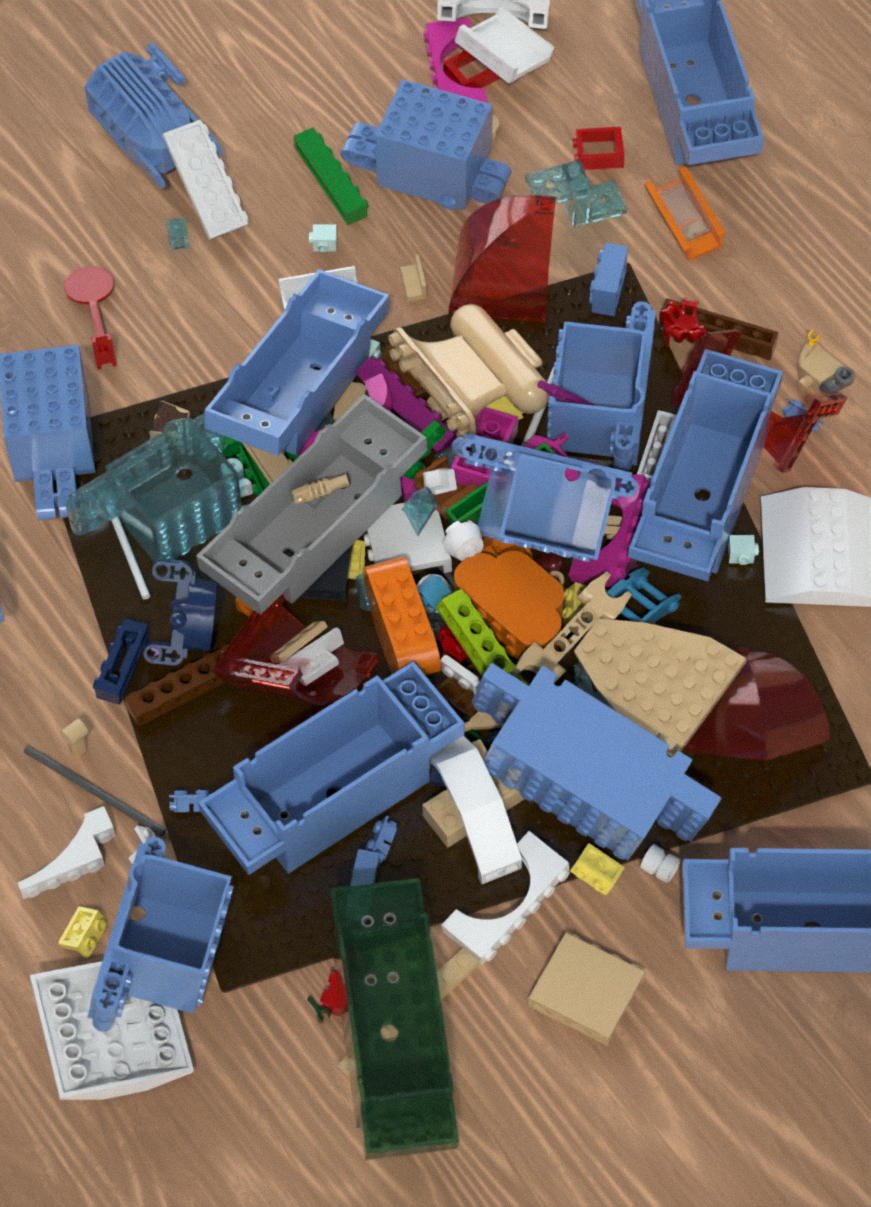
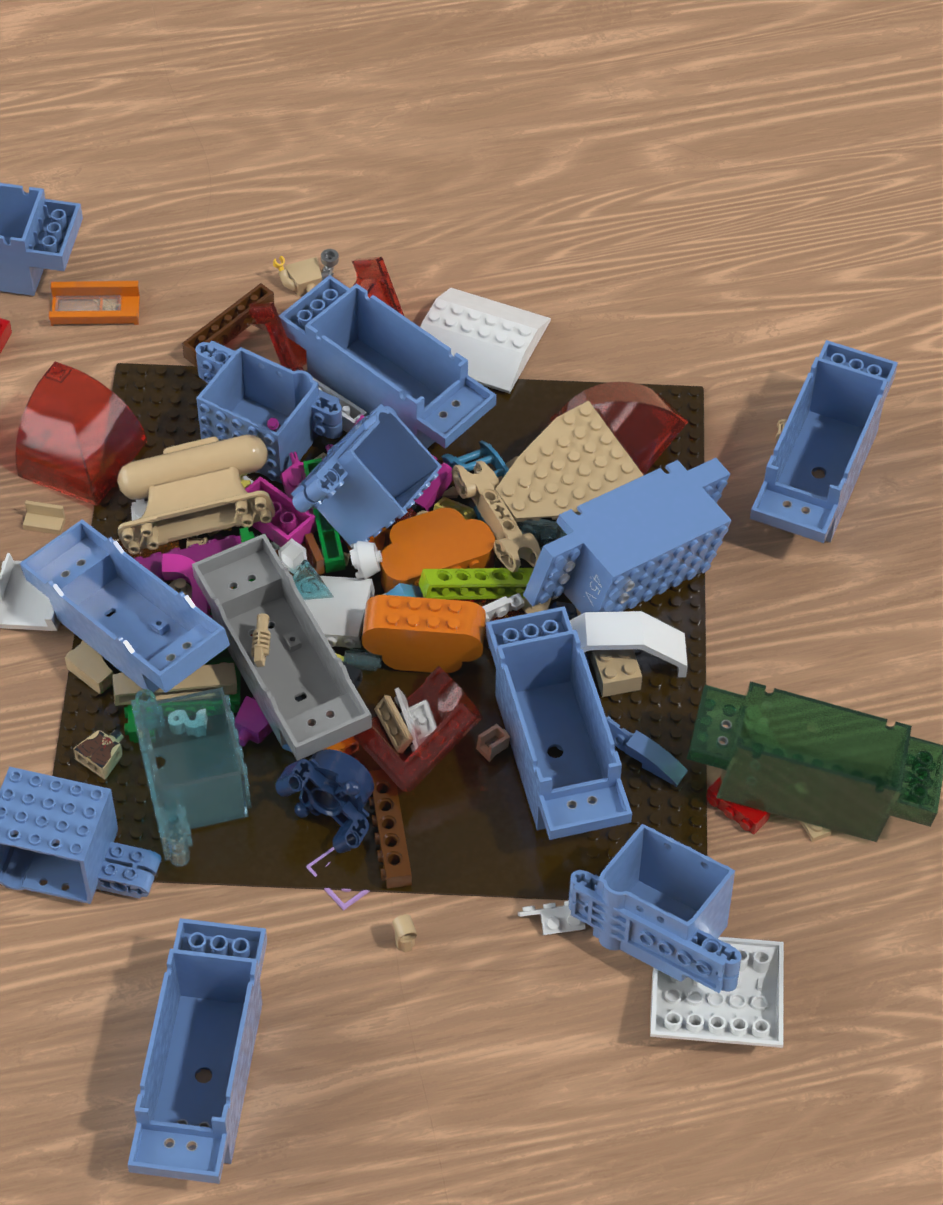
camera: 70 degrees left, 5 degrees down
(77, 859) = (526, 970): white arch -> none
(84, 931) = (603, 993): light yellow bracket -> none
(95, 790) = (458, 943): dark grey piece -> none
(108, 686) = (315, 858): dark blue brick -> none
(130, 558) = (227, 833): white piece -> none
(182, 800) = (515, 855): medium blue hinge -> none
(318, 1009) = (757, 835): dark green hand -> none
(486, 936) = (700, 626): white arch -> none
(576, 193) = (29, 363): clear light blue bracket -> none
(586, 988) = (814, 635): tan panel -> none
(597, 869) = (709, 590): light yellow bracket -> none
(608, 279) = (139, 374): medium blue brick -> none
(657, 862) = (728, 548): white wheel -> none
(684, 325) = (217, 335): red piece -> none

